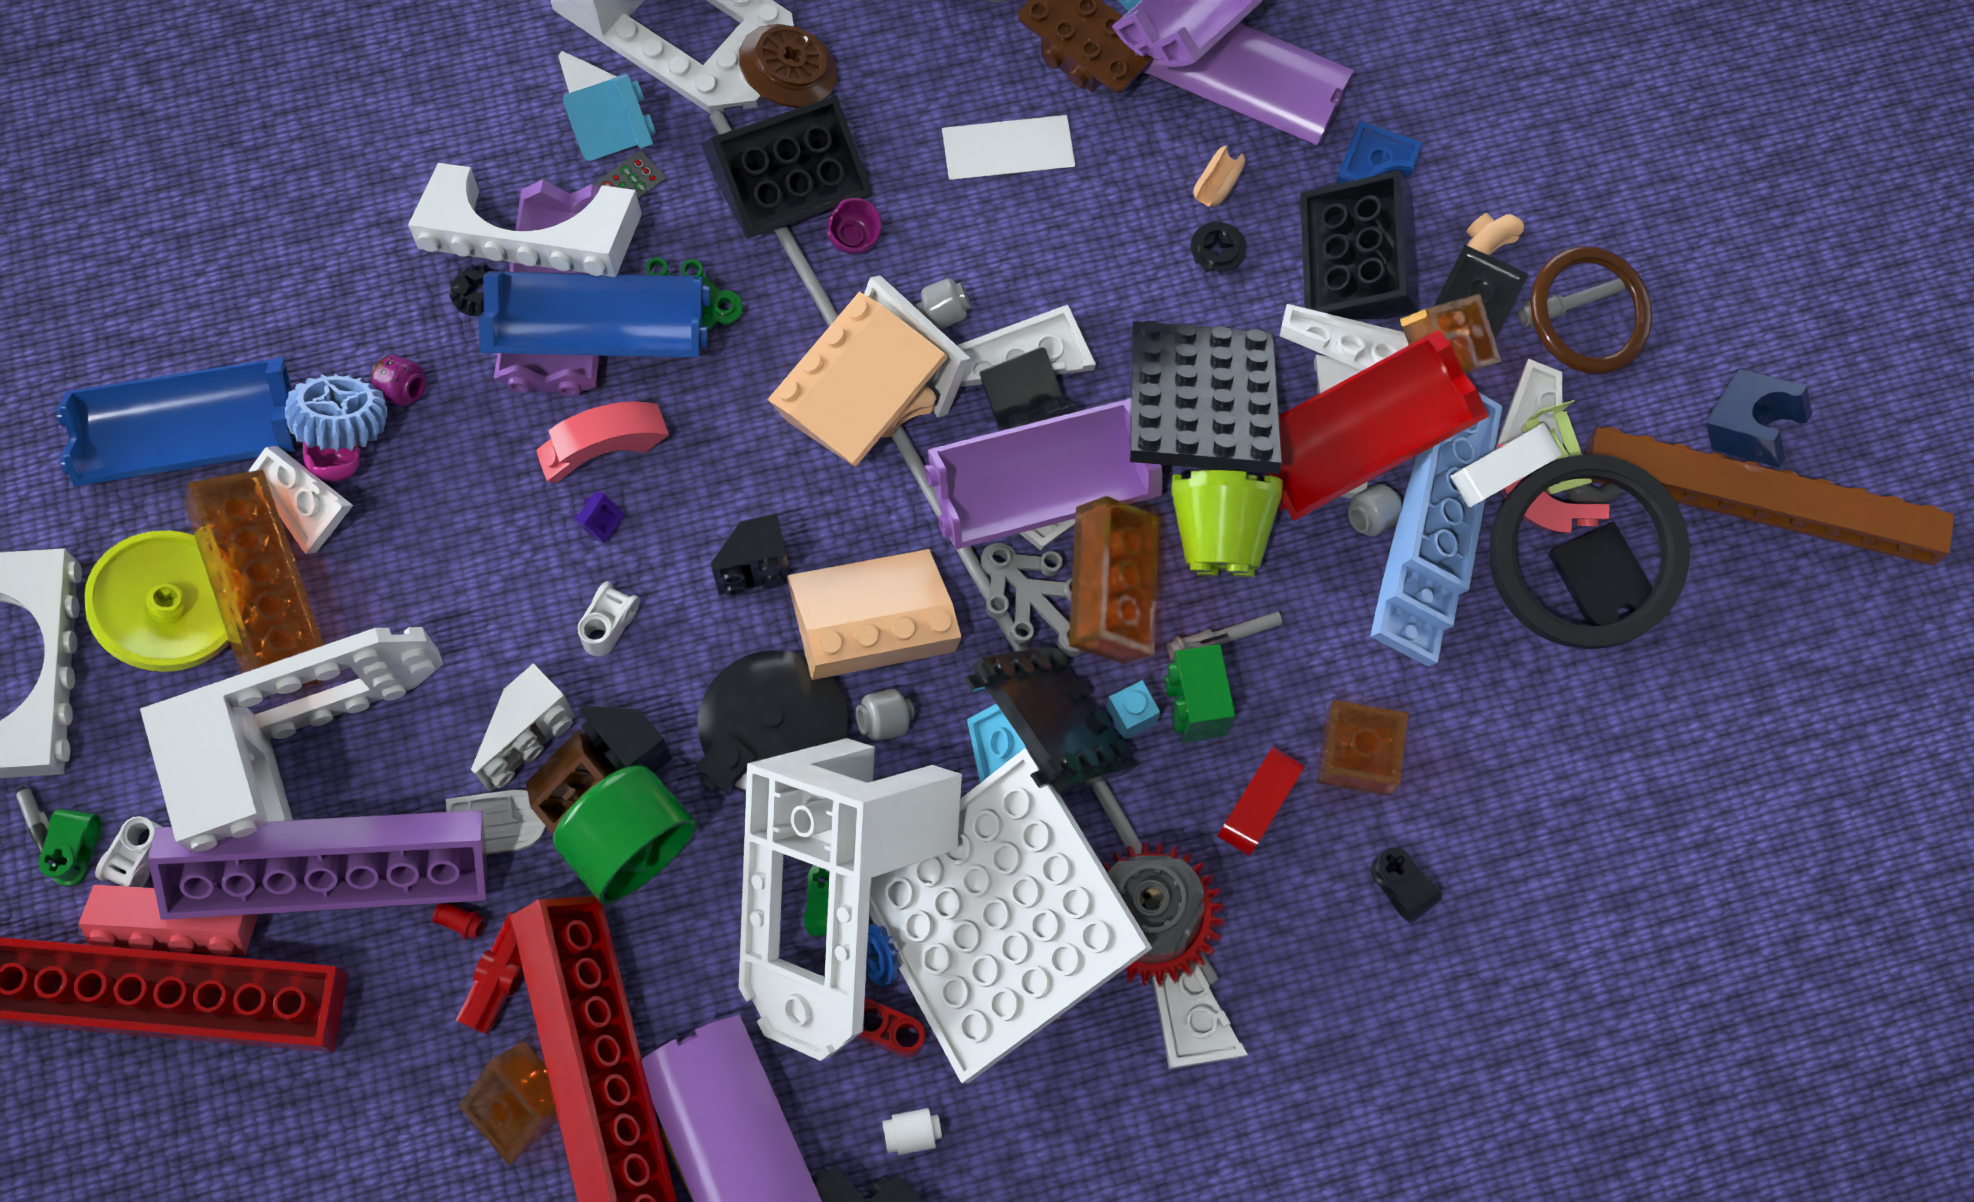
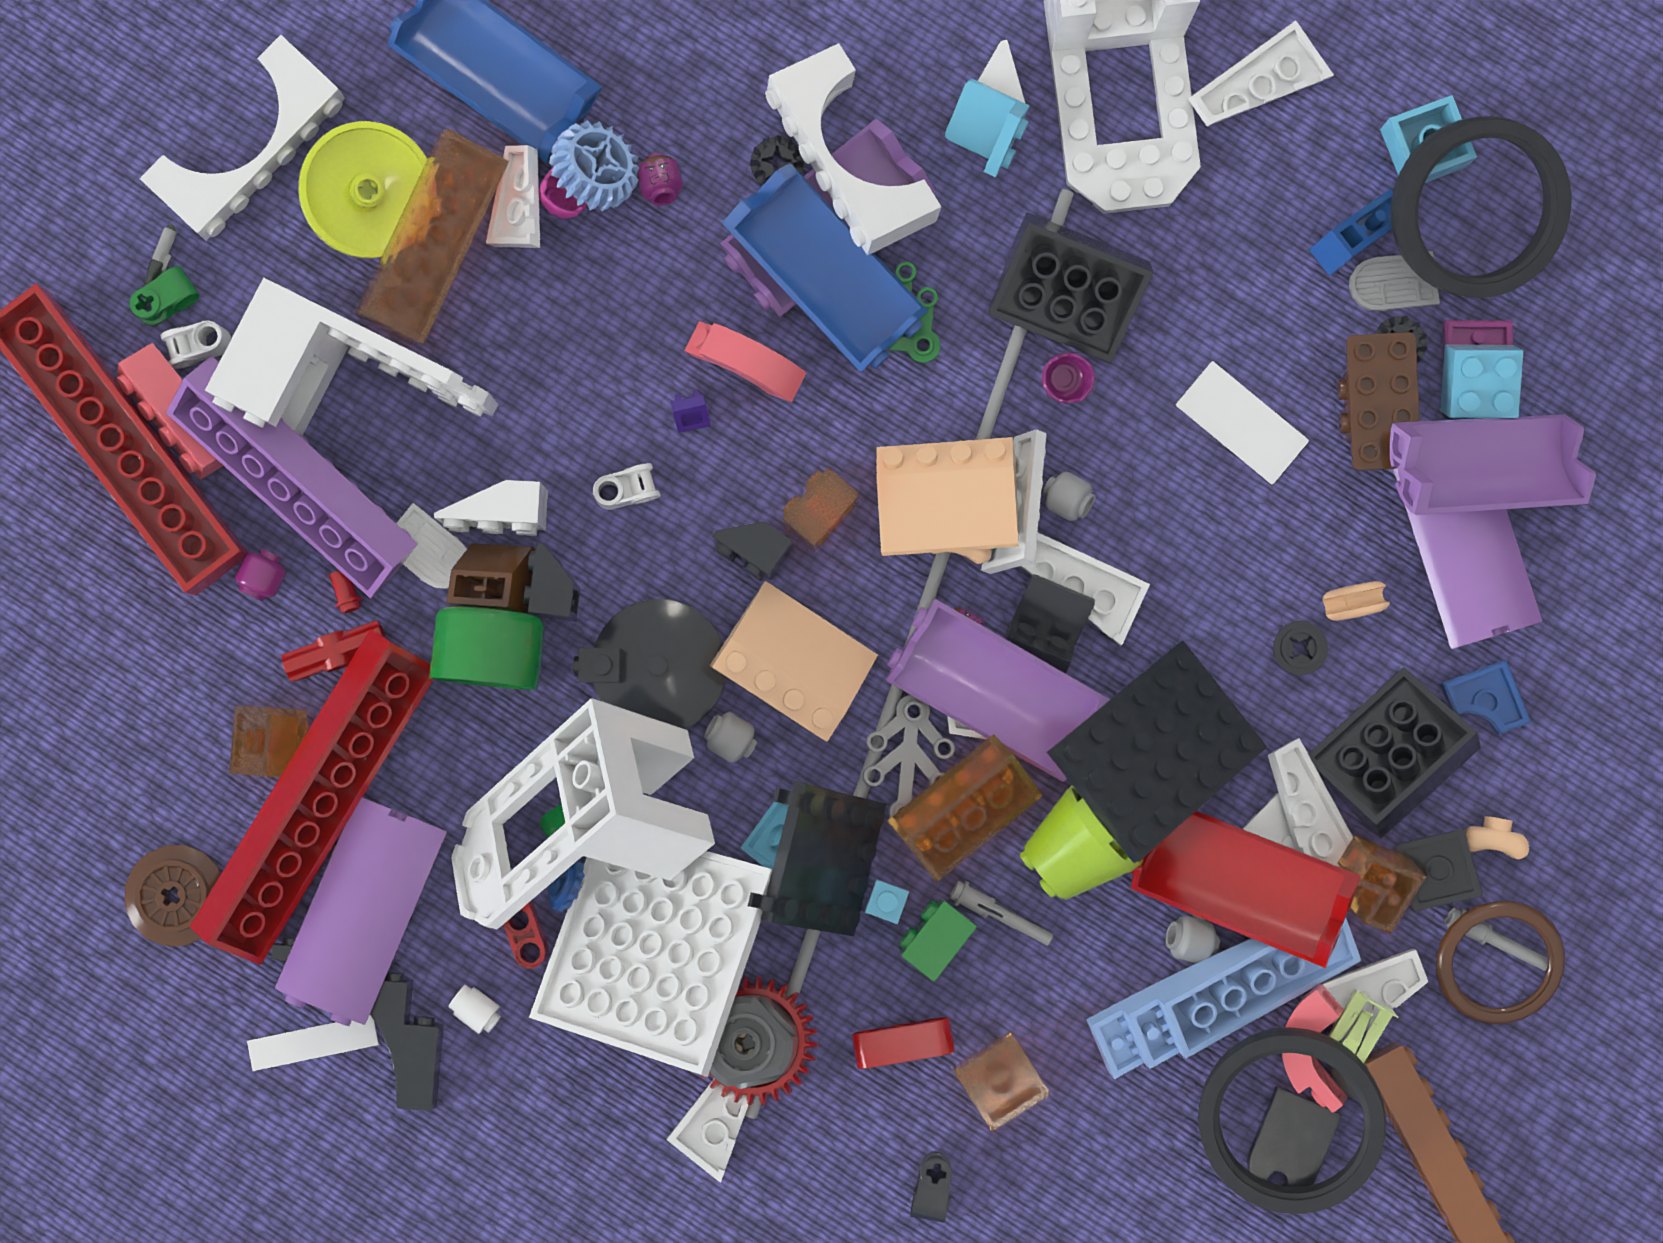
camera: 50 degrees right, 15 degrees up
(373, 975) = (260, 575): none -> magenta head
(634, 173) = (959, 181): dark grey sticker -> none
(772, 479) = (820, 508): none -> clear orange brick
(787, 65) = (1136, 224): reddish brown piece -> none
(1506, 465) = (1301, 1010): white beam -> none
(1745, 410) = (1518, 1140): dark blue piece -> none

